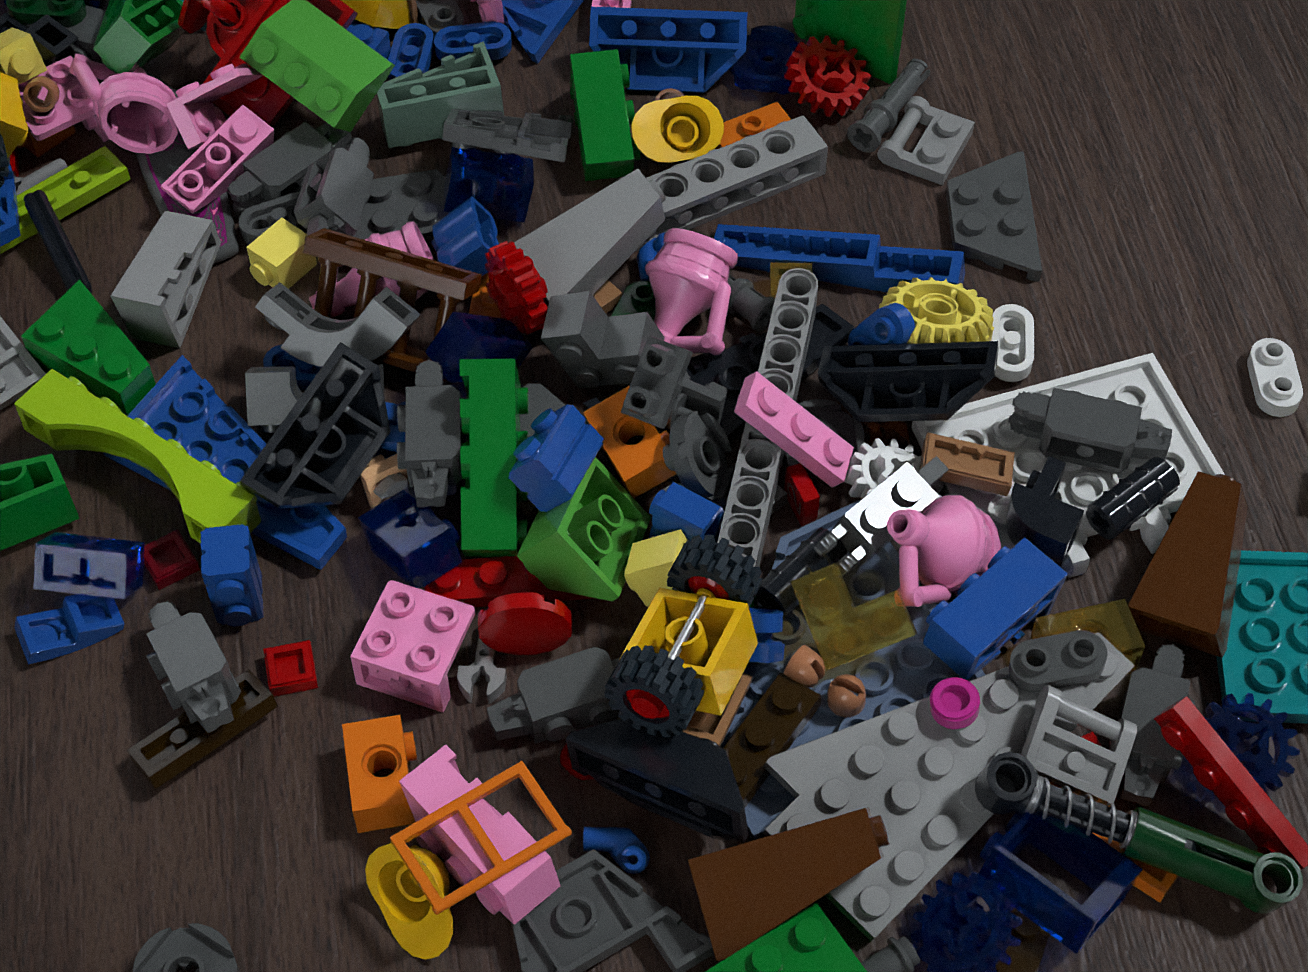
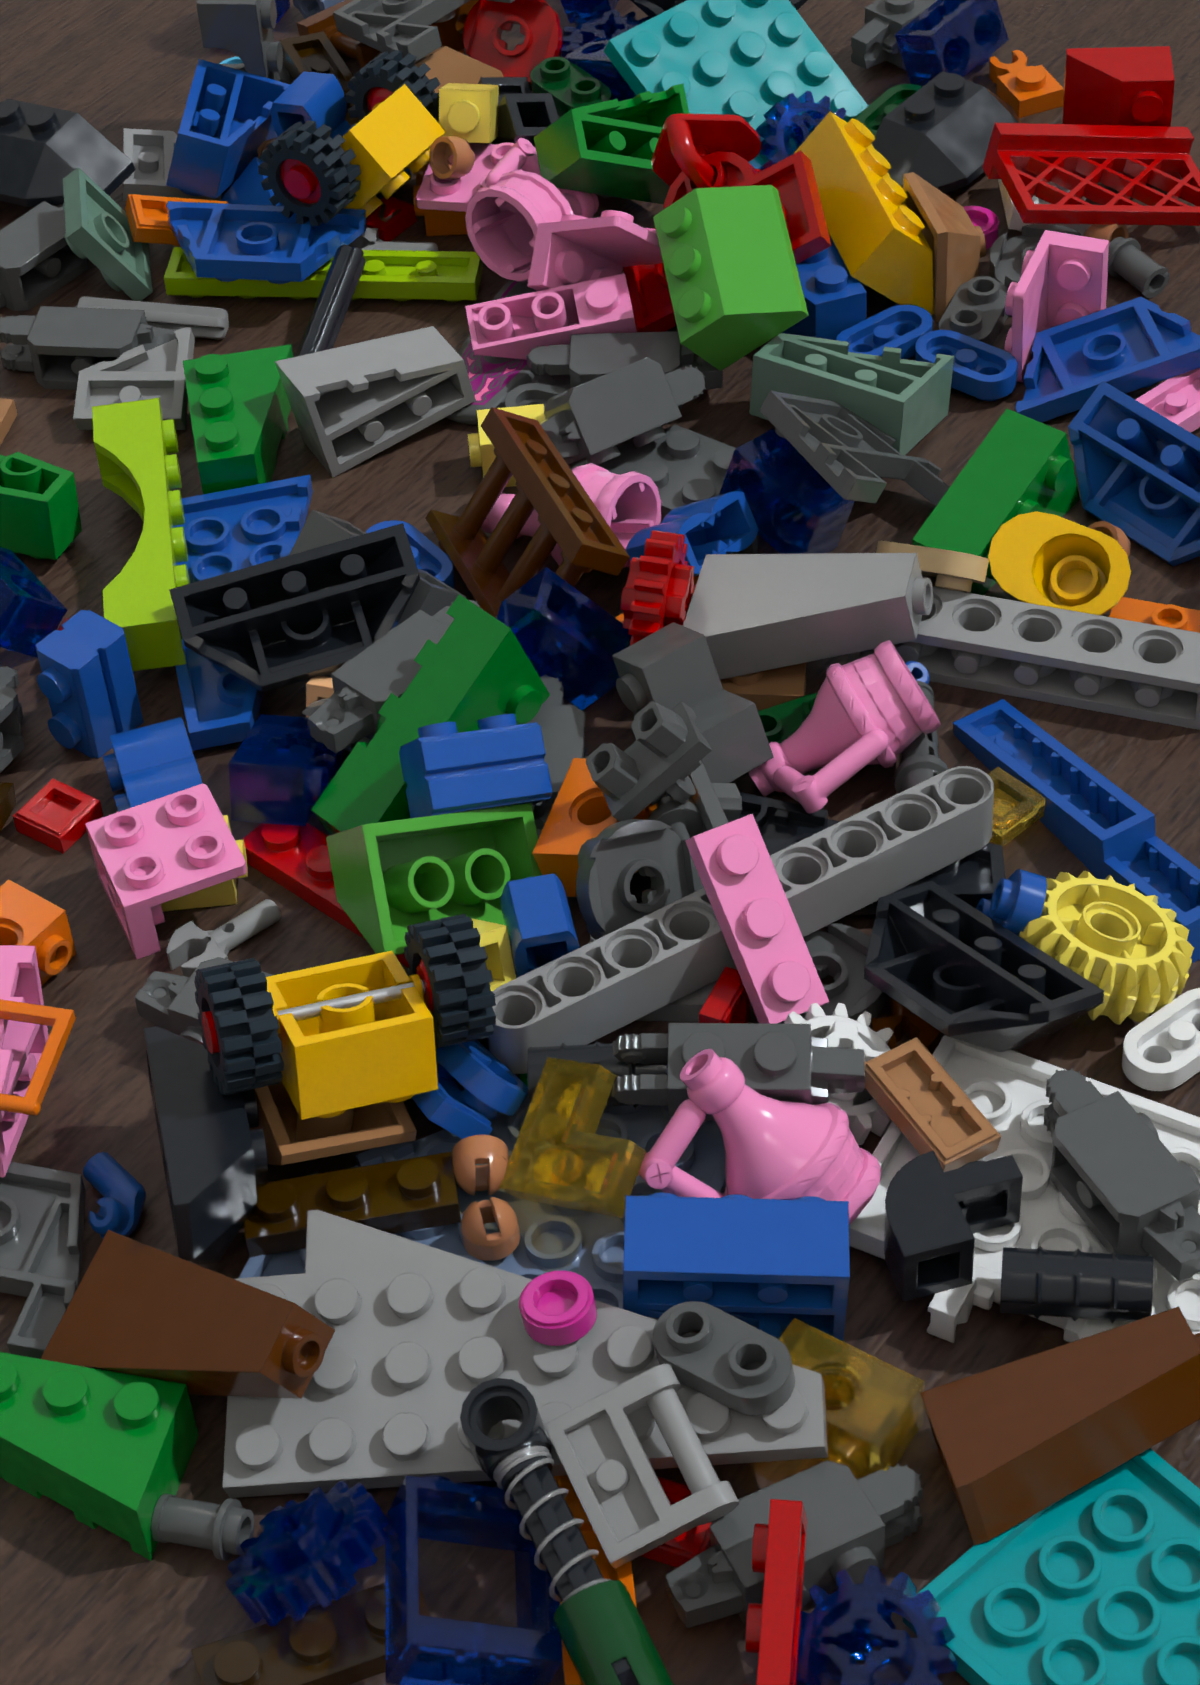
camera: 50 degrees right, 10 degrees down
(315, 336) = (471, 544): dark grey arch -> none
(331, 599) = (151, 763): none -> blue brick
(524, 624) = (272, 918): red tile -> none
(605, 175) = (951, 568): none -> tan plate

